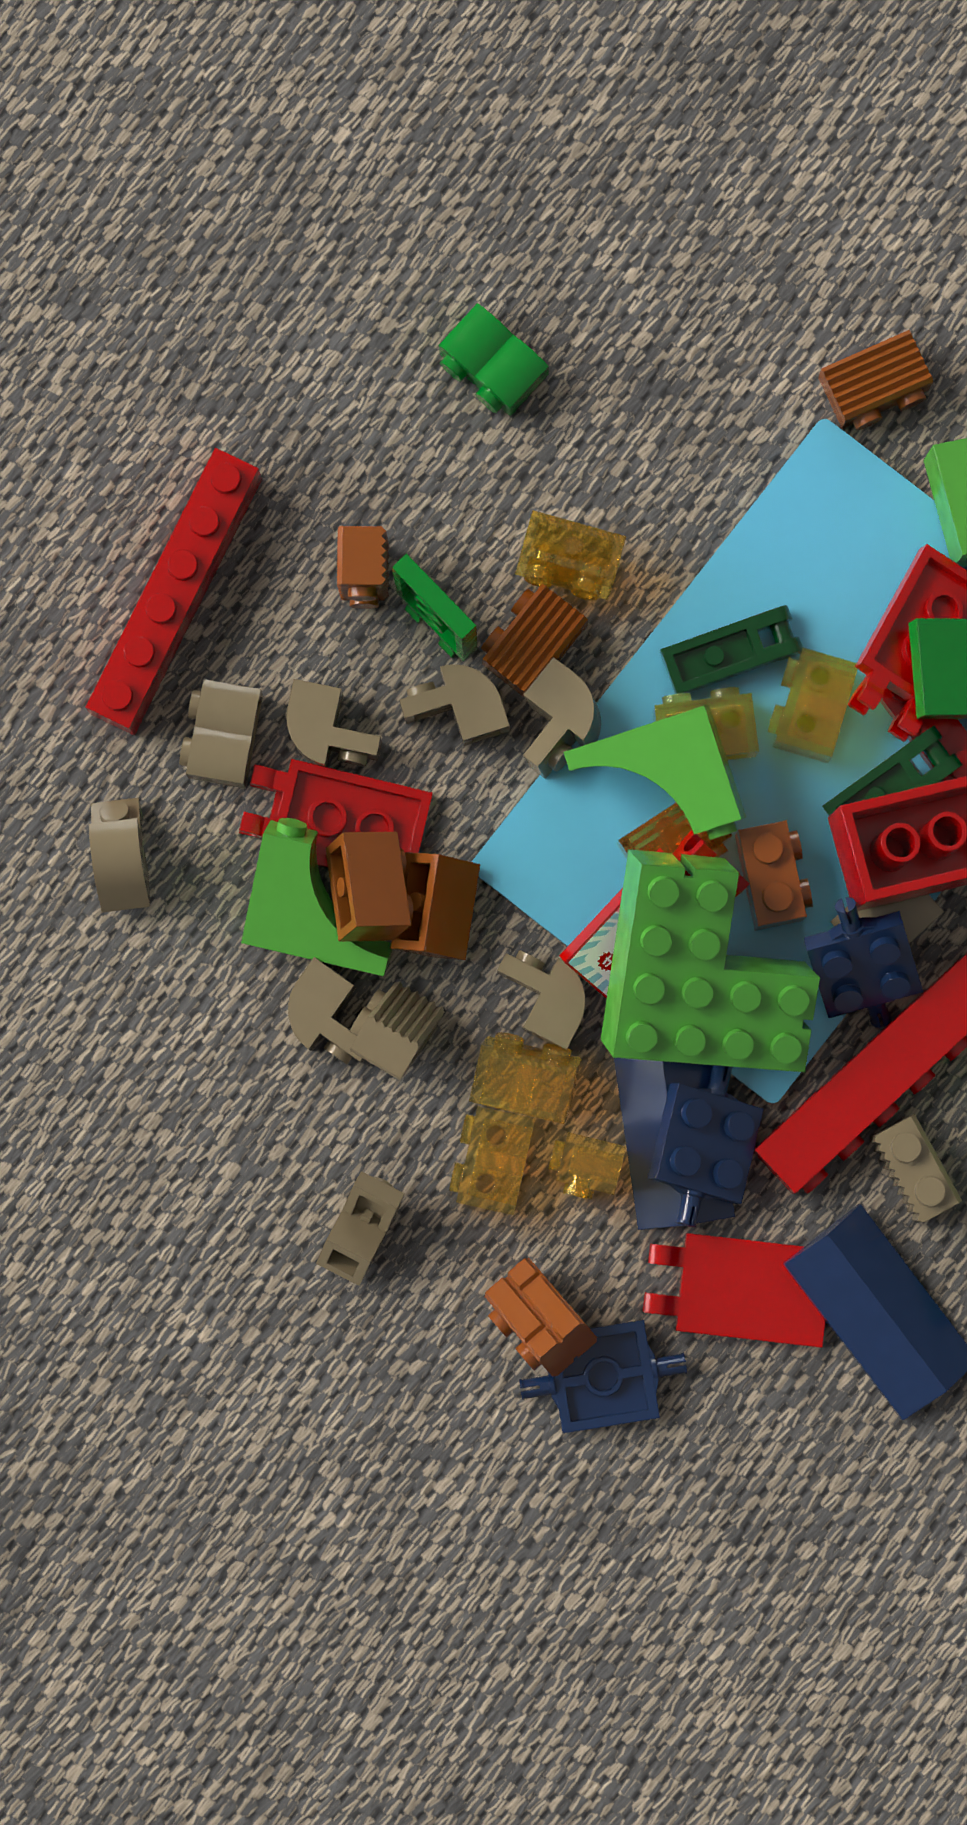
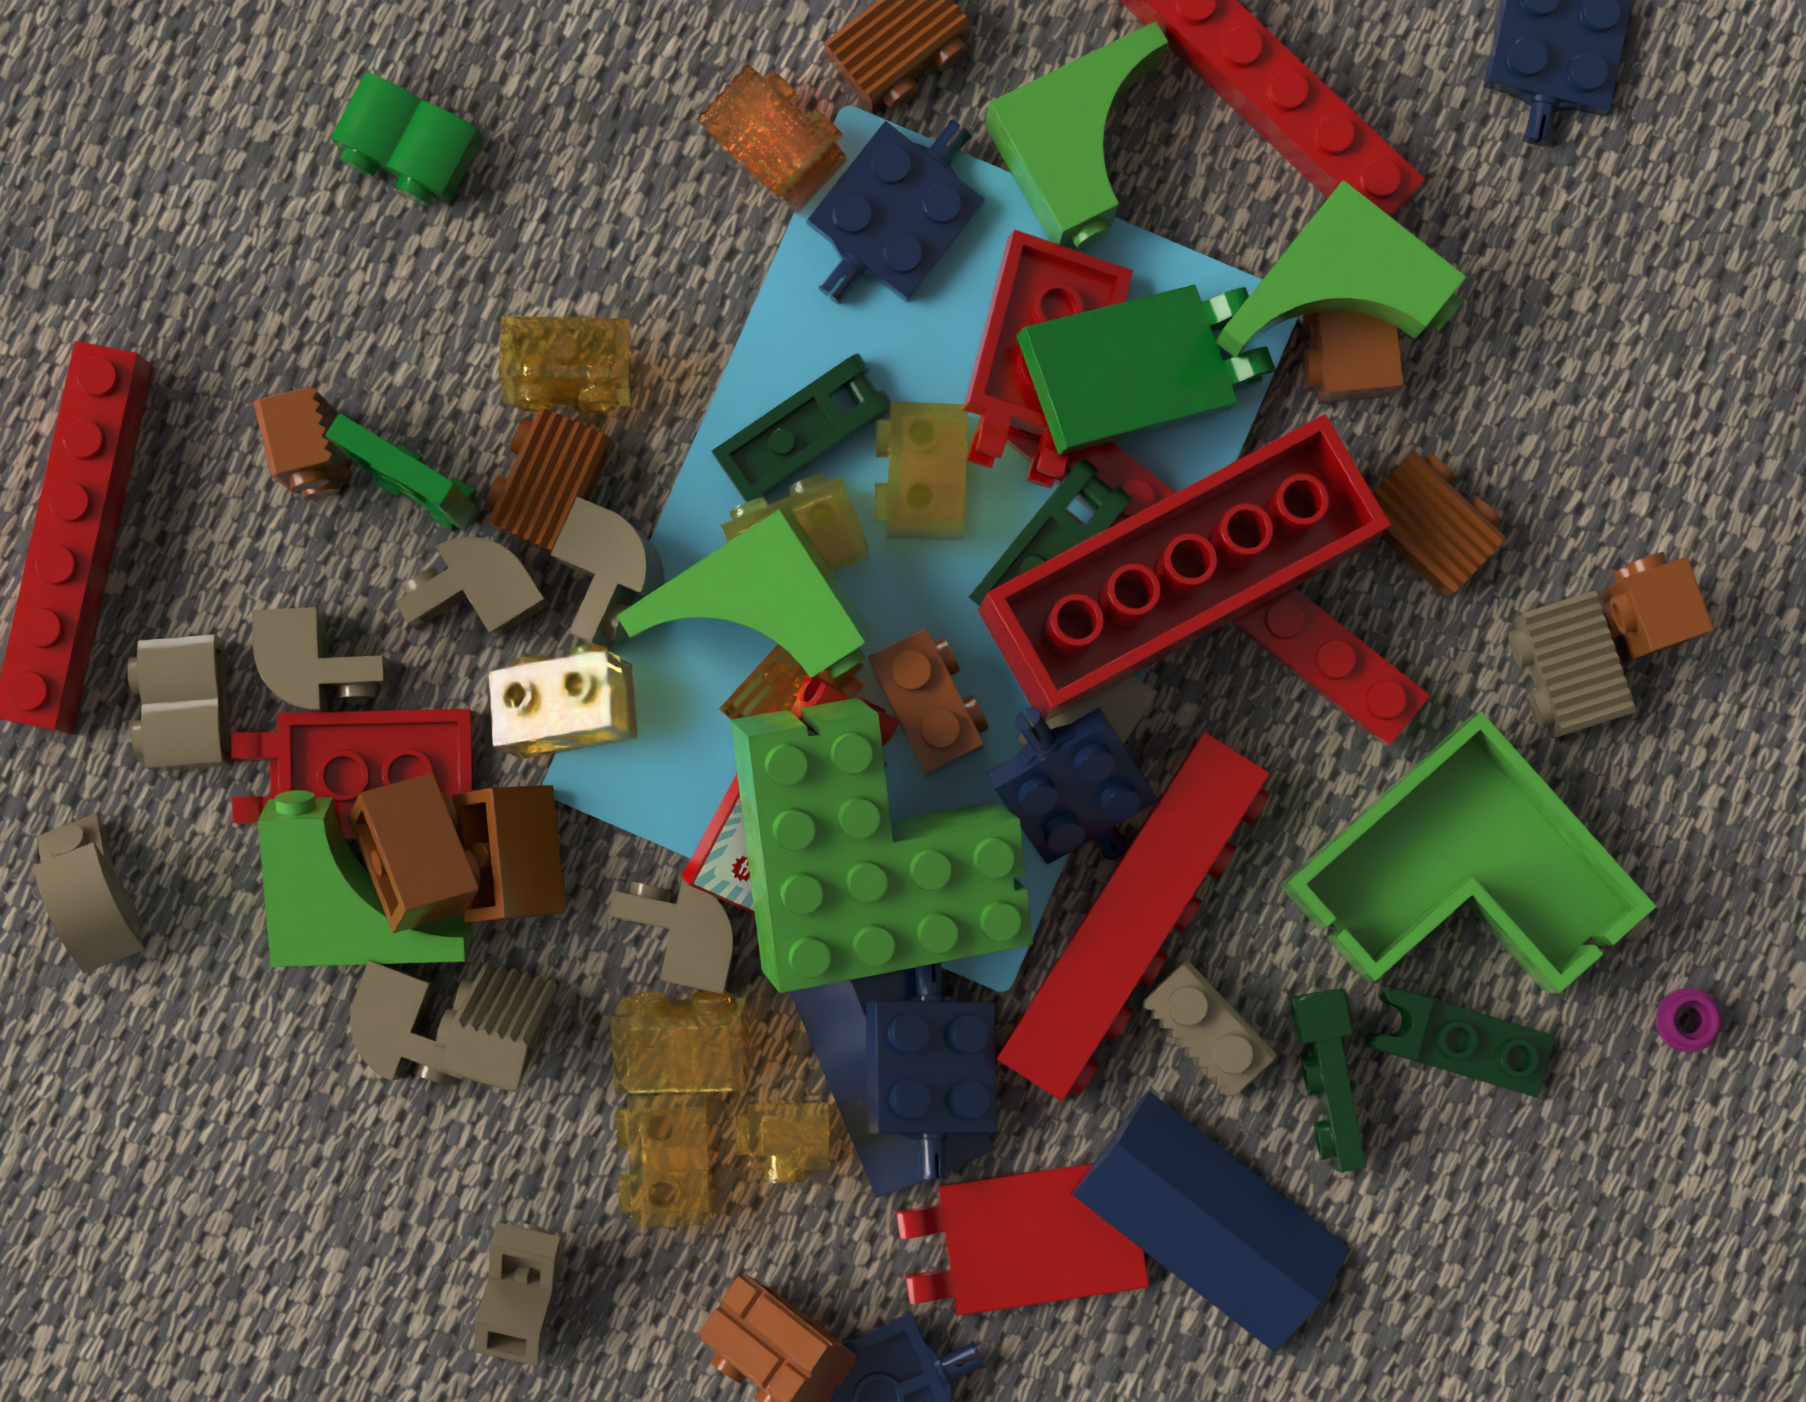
camera: 20 degrees left, 0 degrees up
(503, 806) = (562, 702): none -> clear yellow brick
(765, 429) = (773, 137): none -> clear orange brick
(841, 507) = (895, 211): none -> dark blue plate

